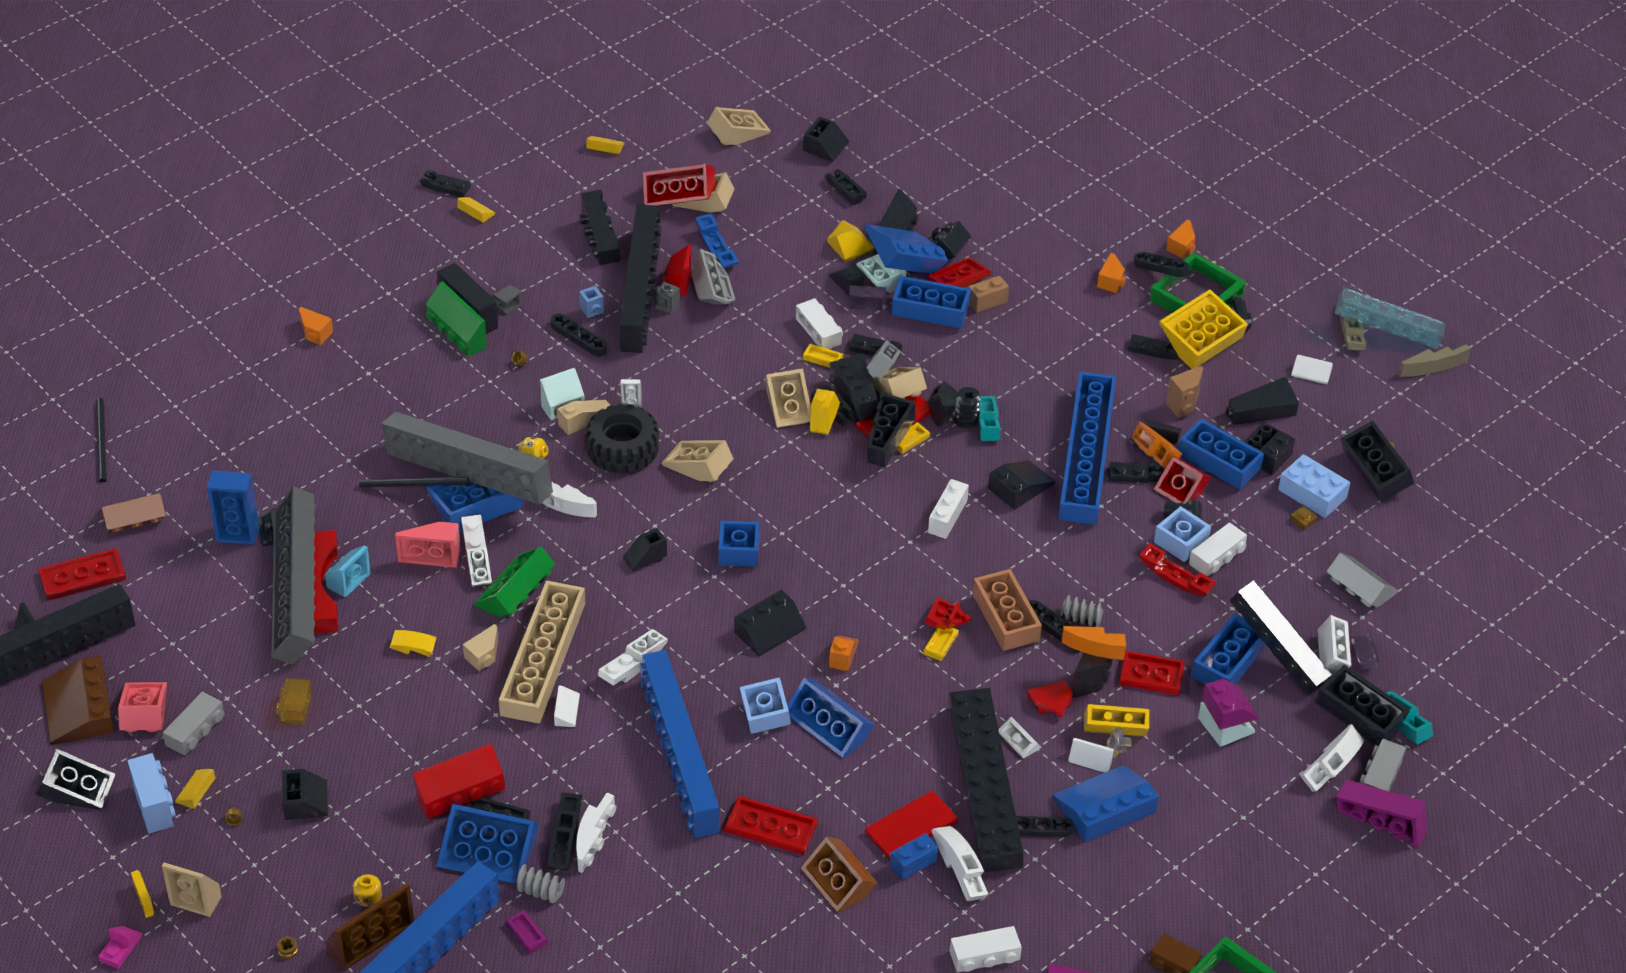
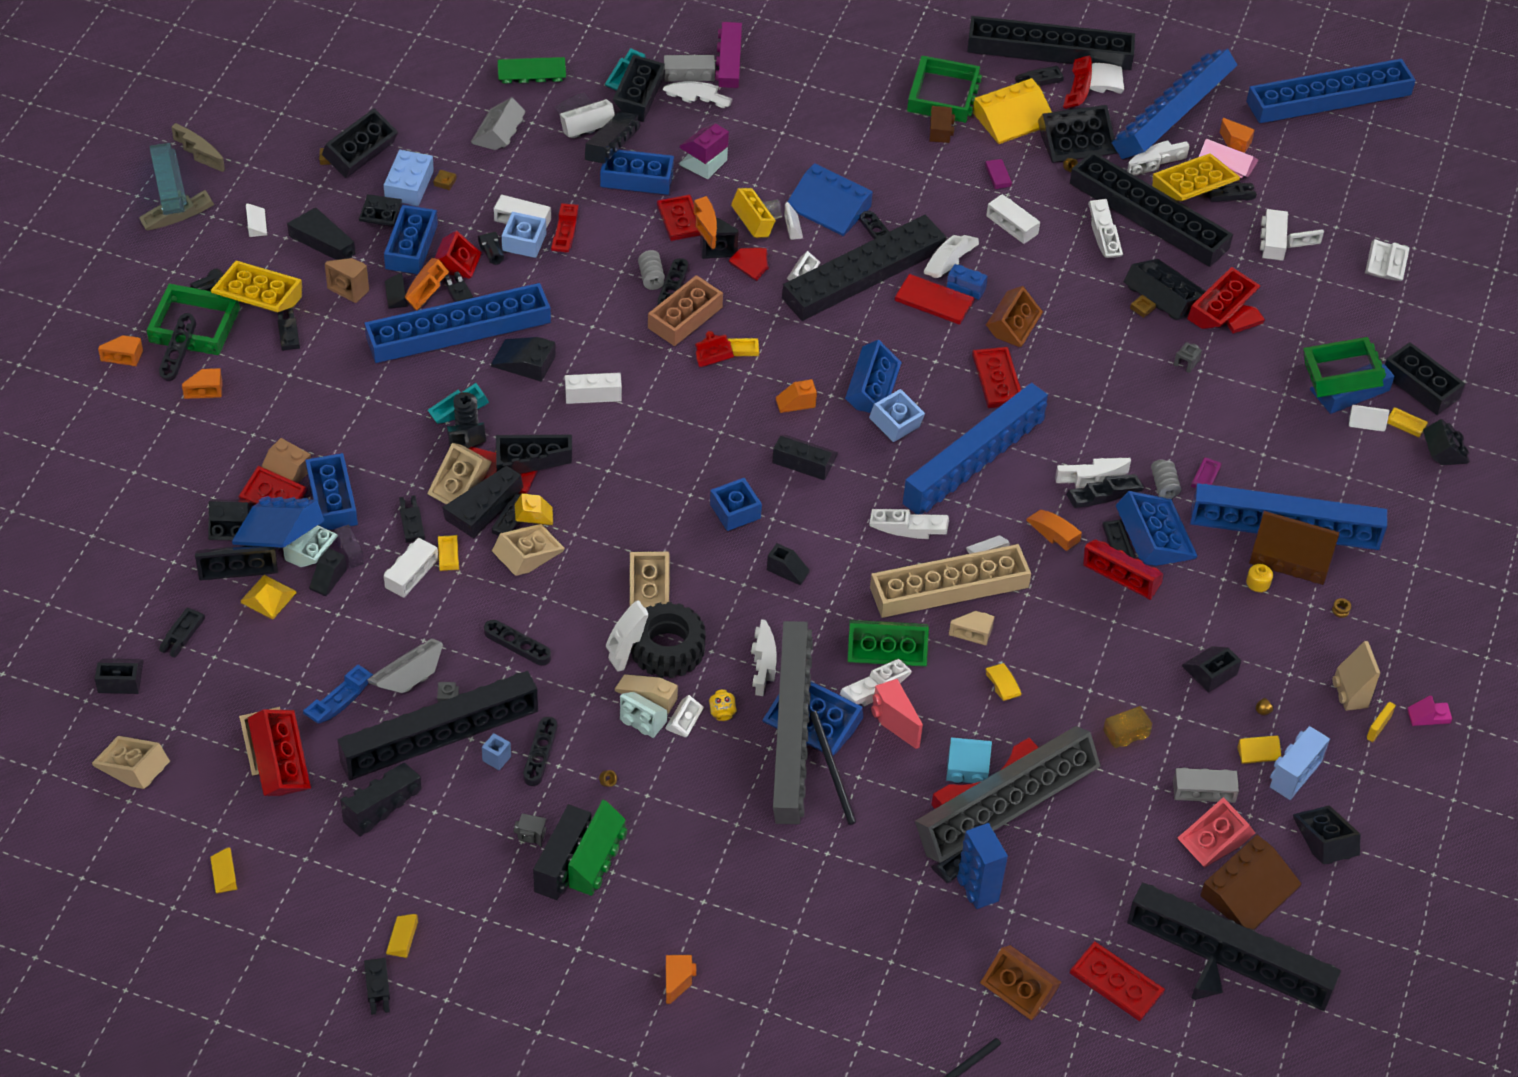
camera: 120 degrees left, 5 degrees up
(544, 429) = (685, 716): none -> white slope
(548, 764) = (1055, 529): none -> orange slope
(679, 269) = (406, 695): red slope -> none
(715, 353) = (519, 640): none -> black beam
(883, 360) = (446, 485): light grey brick -> none
(1443, 639) = (531, 69): none -> green slope

